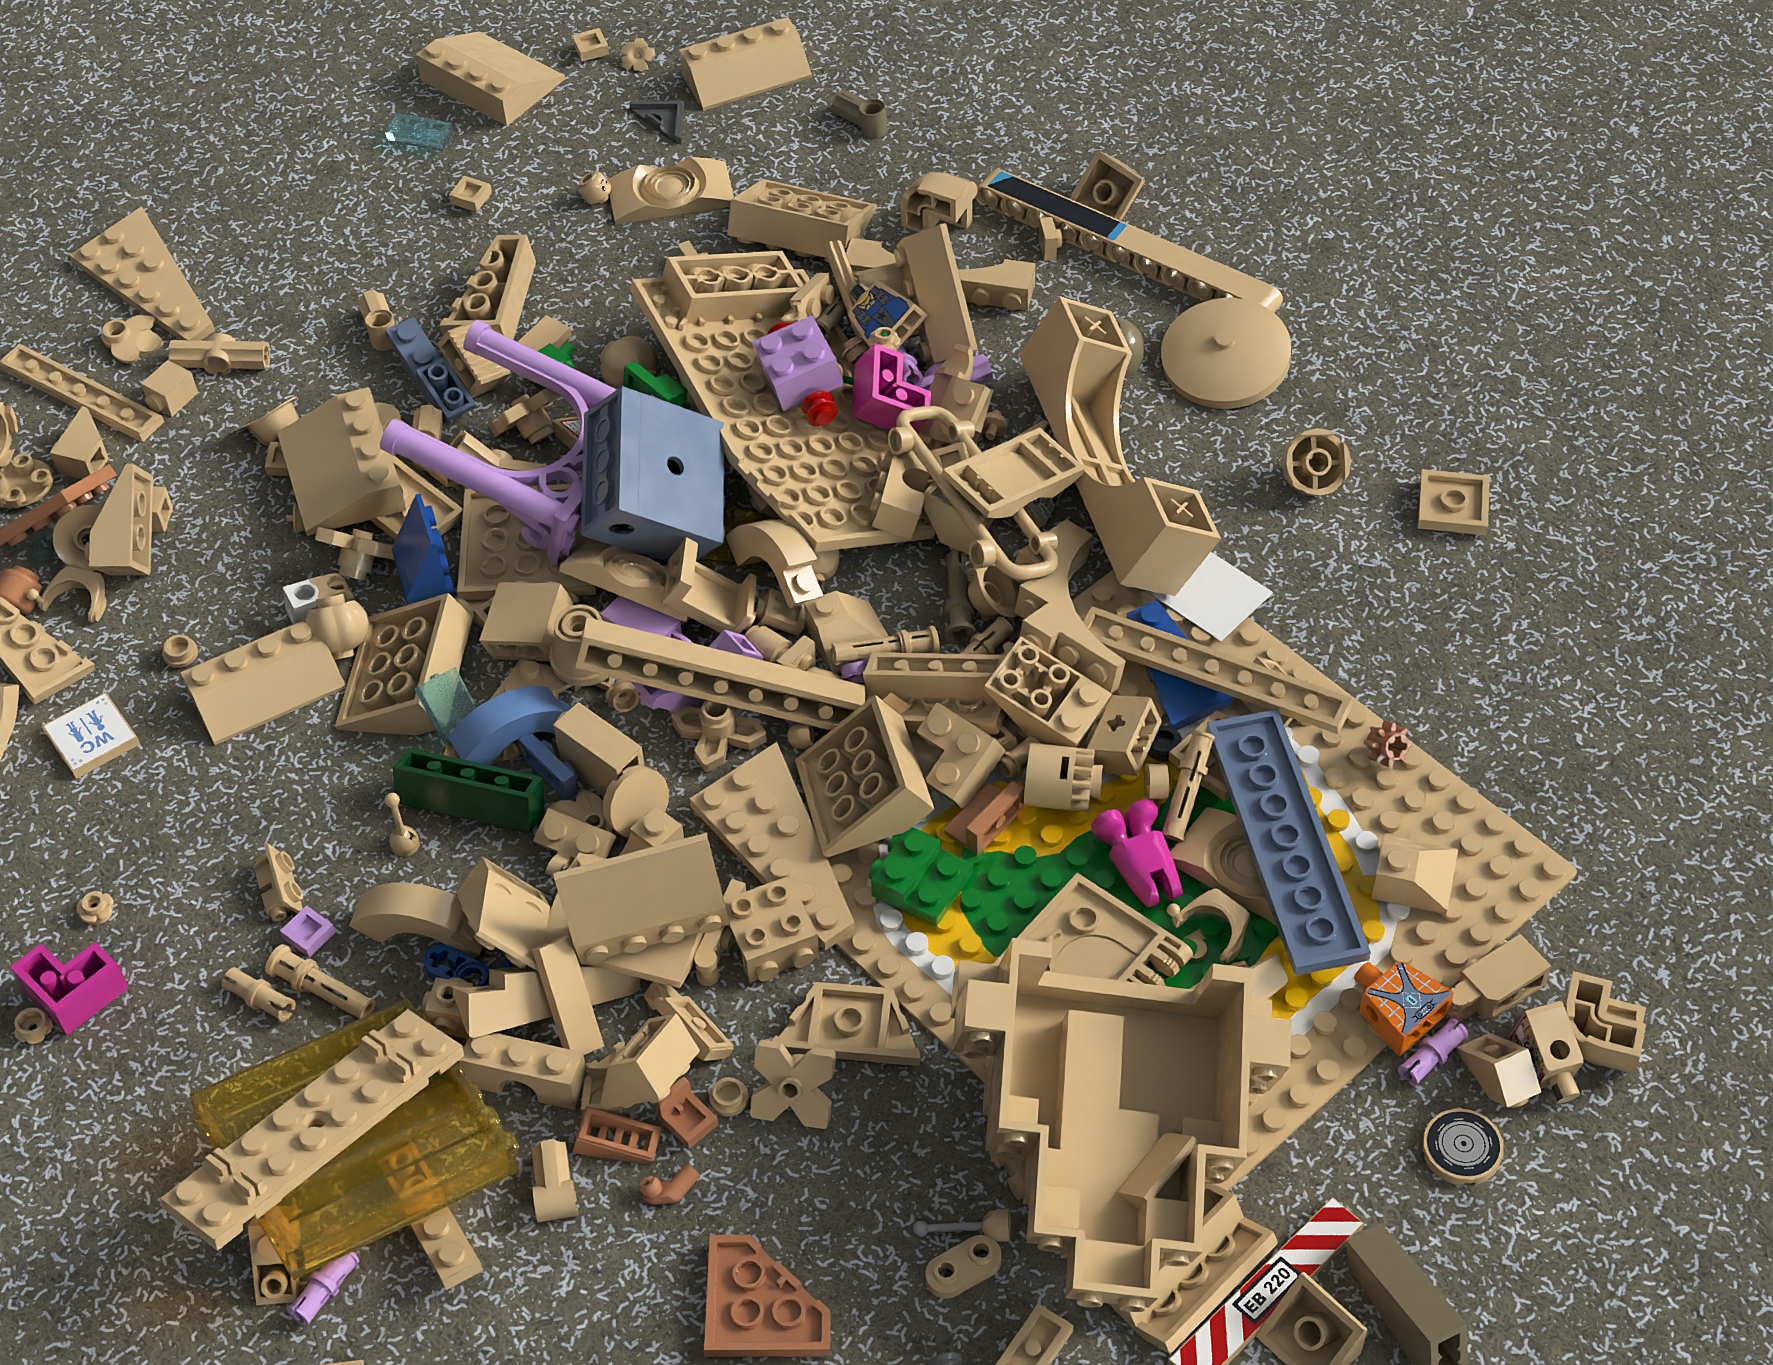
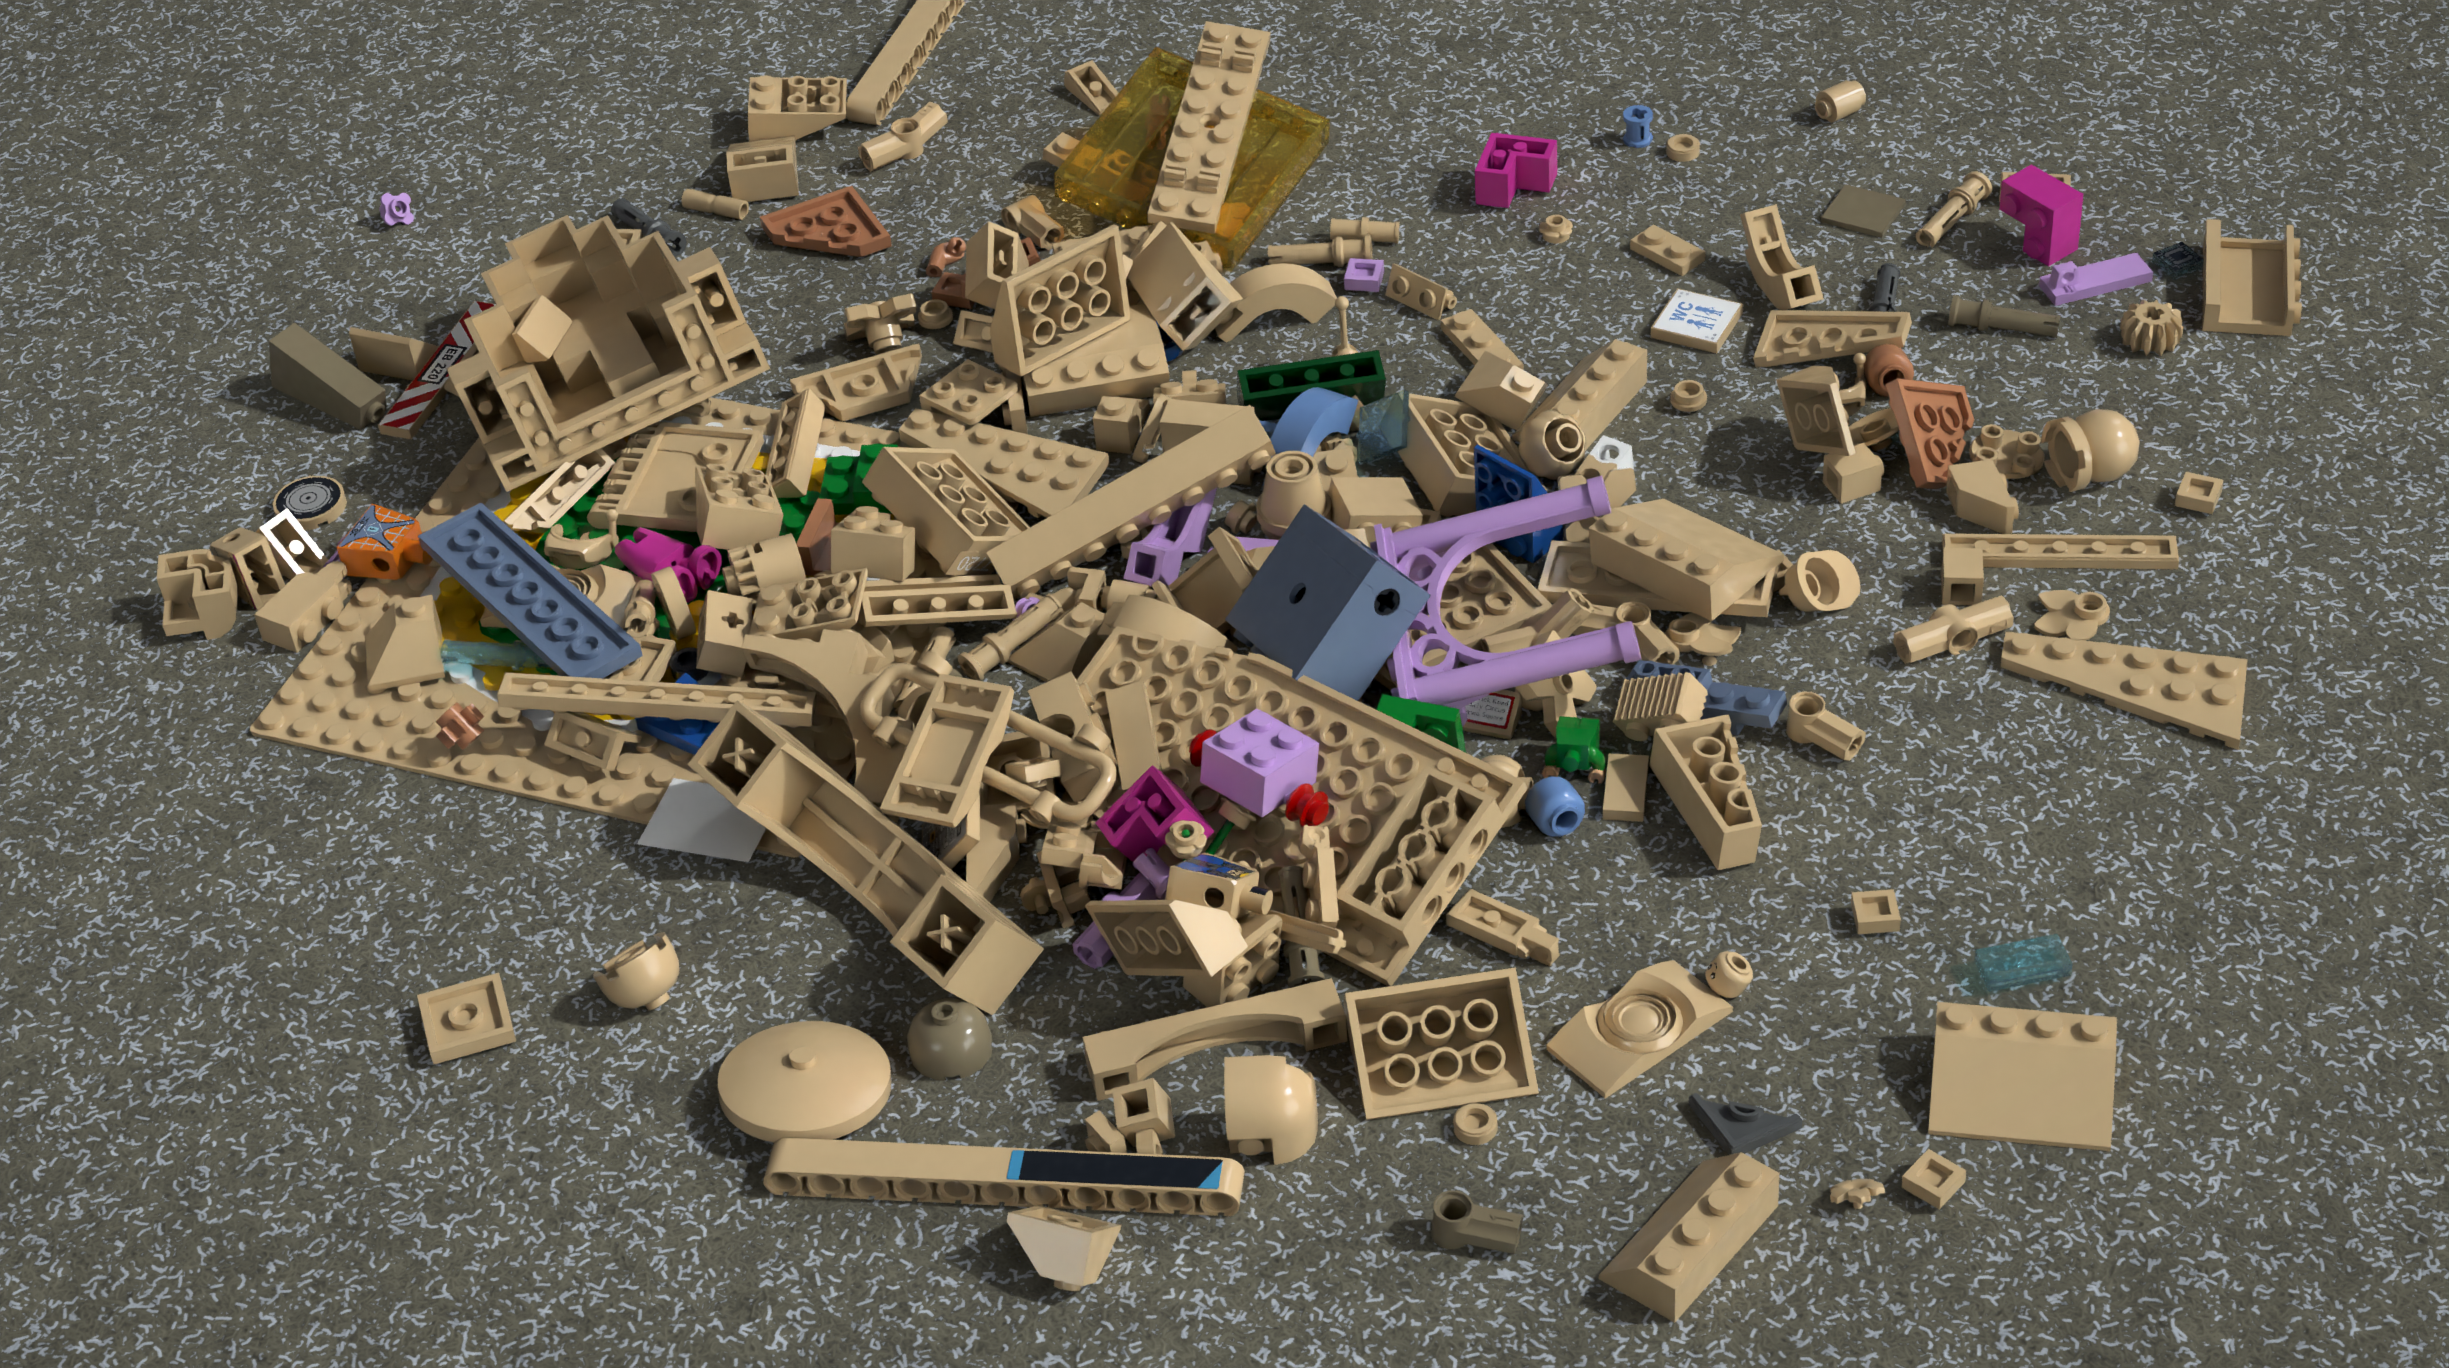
camera: 155 degrees right, 10 degrees down
(31, 832) = (1667, 250): none -> tan plate
(282, 797) = (1475, 337): none -> tan plate
(312, 713) = (1501, 390): none -> tan slope
(598, 331) = (1555, 806): none -> medium blue head
(814, 175) = (1475, 1124): none -> tan tile
(859, 468) = (1132, 732): none -> tan tile
(972, 941) = (795, 444): none -> tan slope
(1016, 234) = (1144, 1115): none -> tan brick
(1053, 864) = (735, 507): none -> tan slope
(1348, 827) = (493, 654): none -> clear light blue pin

